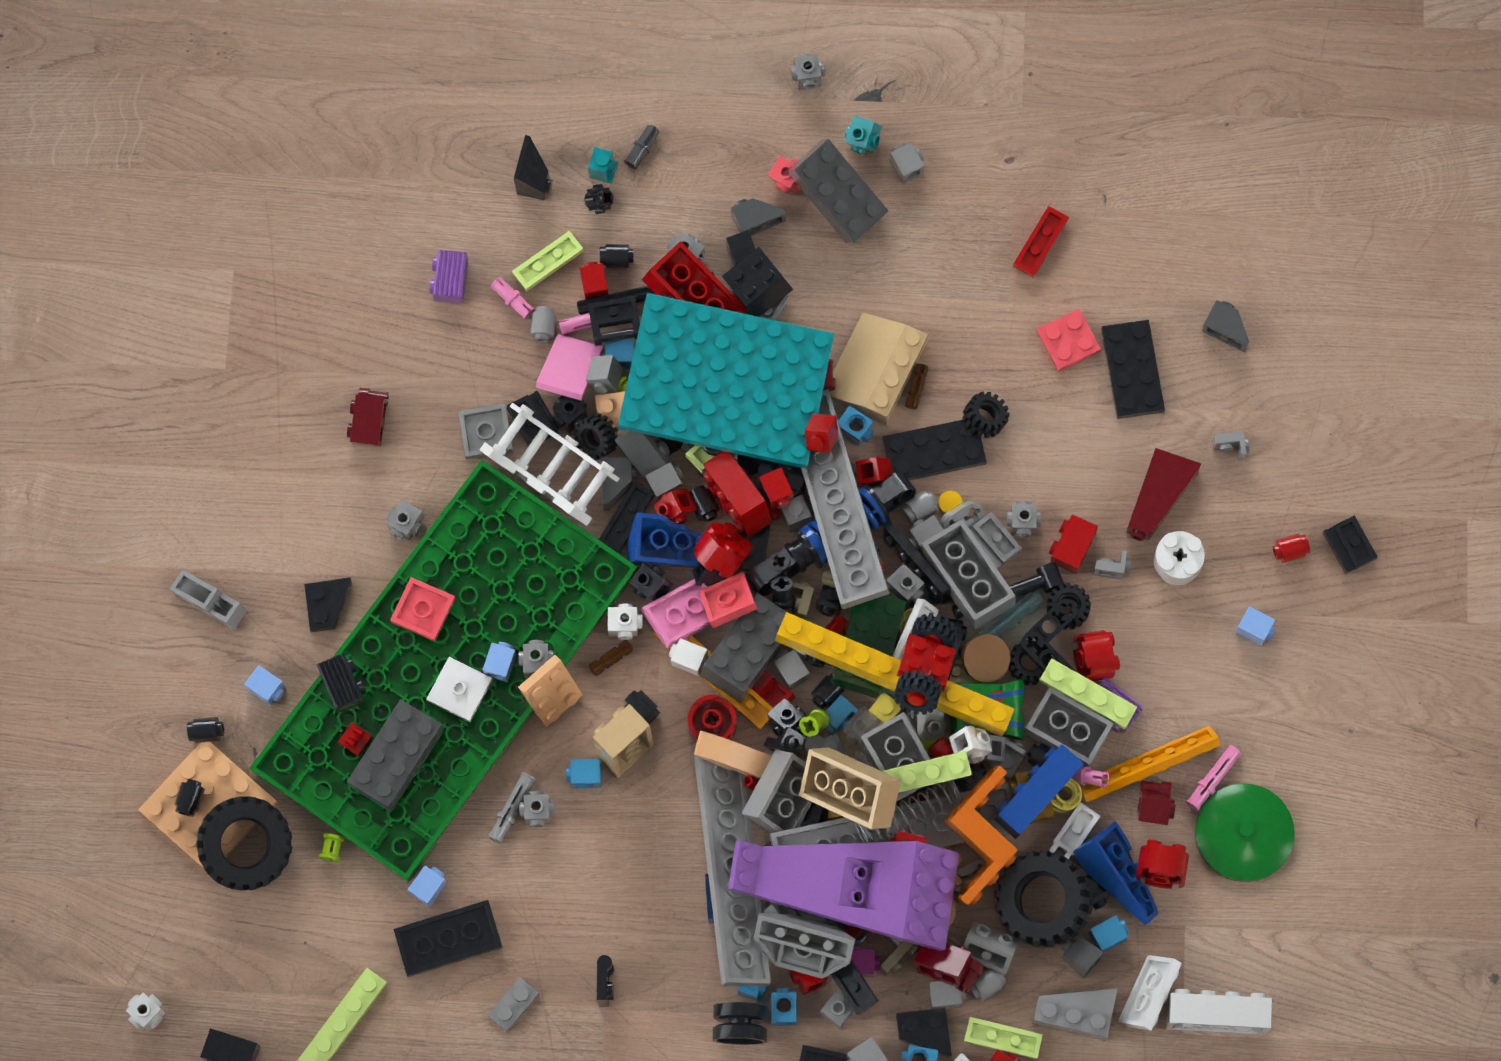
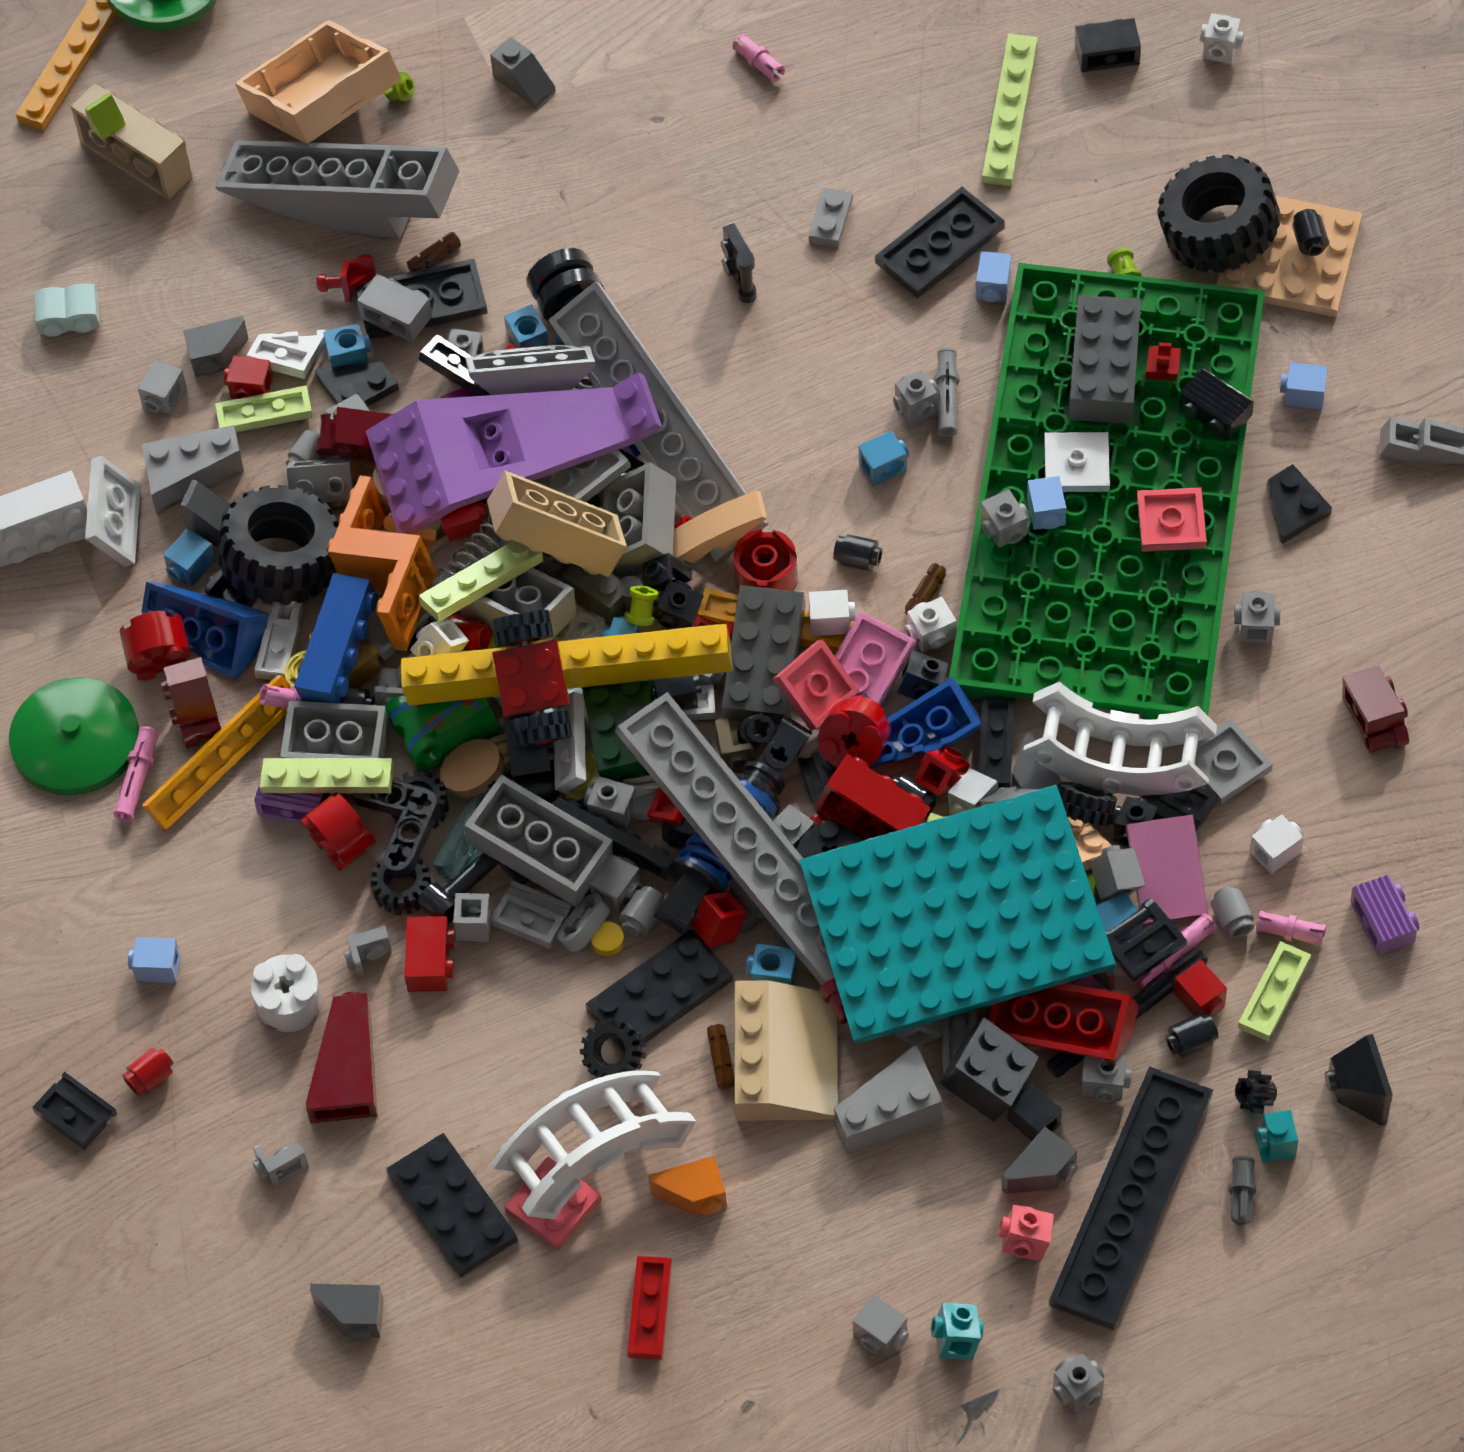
camera: 155 degrees right, 15 degrees down
(205, 730) = (1342, 316): black brick -> none
(487, 357) = (1276, 843): none -> white brick
(550, 691) = (967, 499): light nougat plate -> none
(622, 740) = (852, 474): tan brick -> none
(710, 173) = (1131, 1198): none -> black plate
(776, 488) = (824, 820): red brick -> none
(821, 433) = (801, 899): red brick -> none
(829, 297) = (889, 1104): none -> light grey wedge
(837, 191) = (948, 1226): dark grey brick -> none
(978, 304) = (691, 1187): none -> orange slope
(1023, 527) = (504, 951): light grey brick -> none
(1027, 332) = (602, 1149): none -> white fence
(1033, 551) = (472, 917): none -> light grey brick

